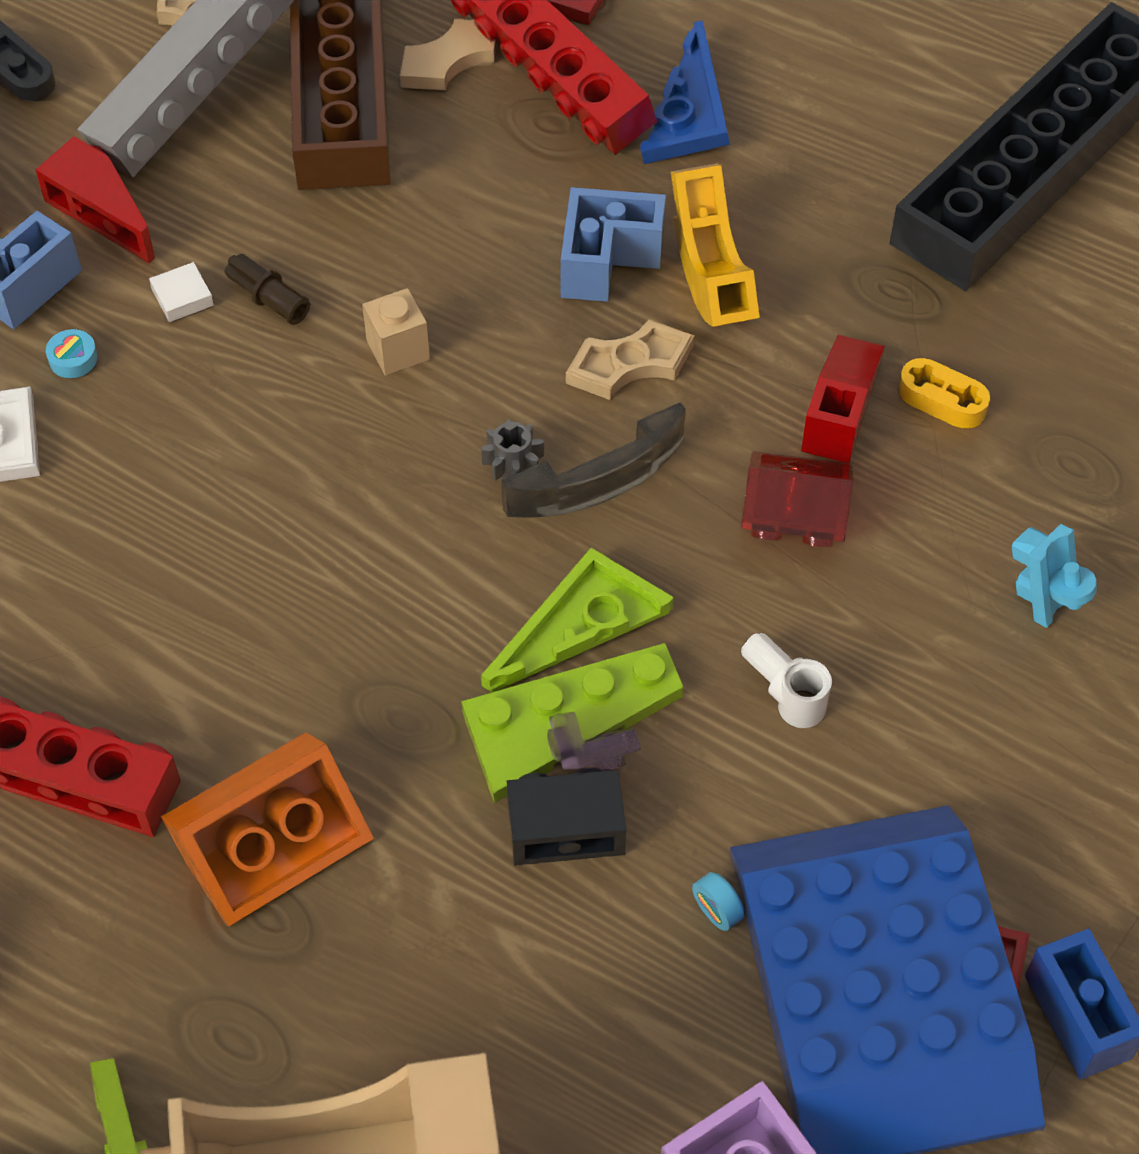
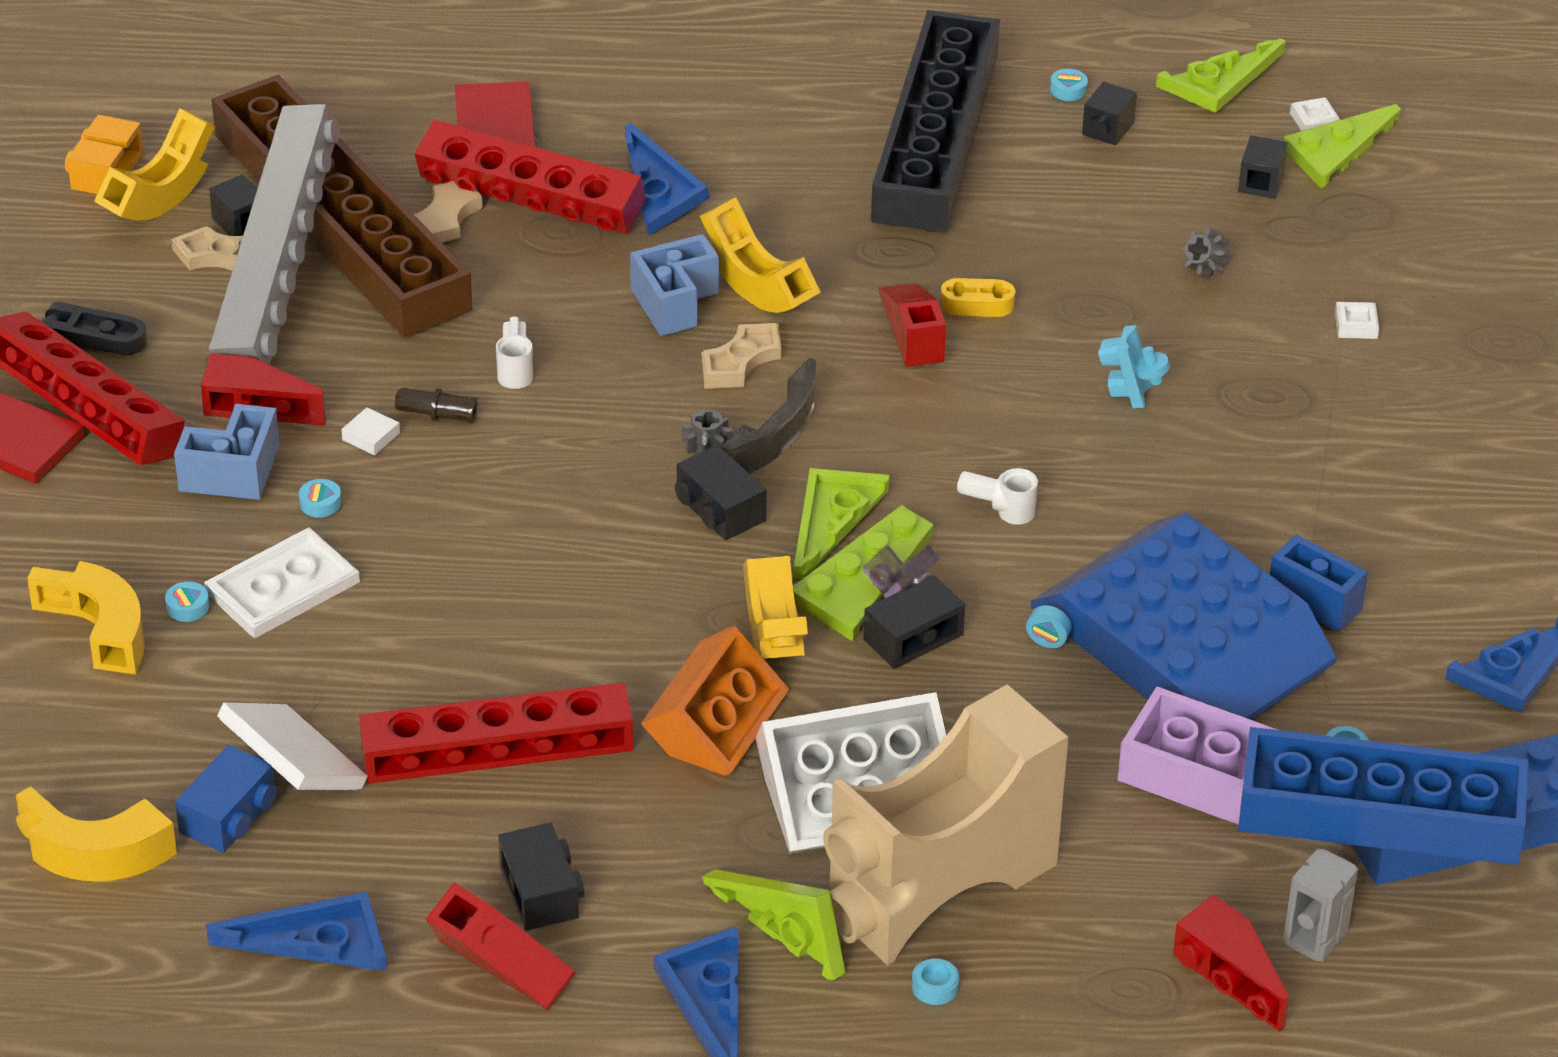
camera: 30 degrees left, 15 degrees down
(345, 1002) = (855, 743): none -> white slope
(384, 258) = (514, 355): none -> white axle
(396, 331) = (563, 393): tan brick -> none
(415, 730) = (772, 608): none -> yellow arch
(473, 535) = (721, 492): none -> black brick
(797, 498) = (927, 389): clear red slope -> none

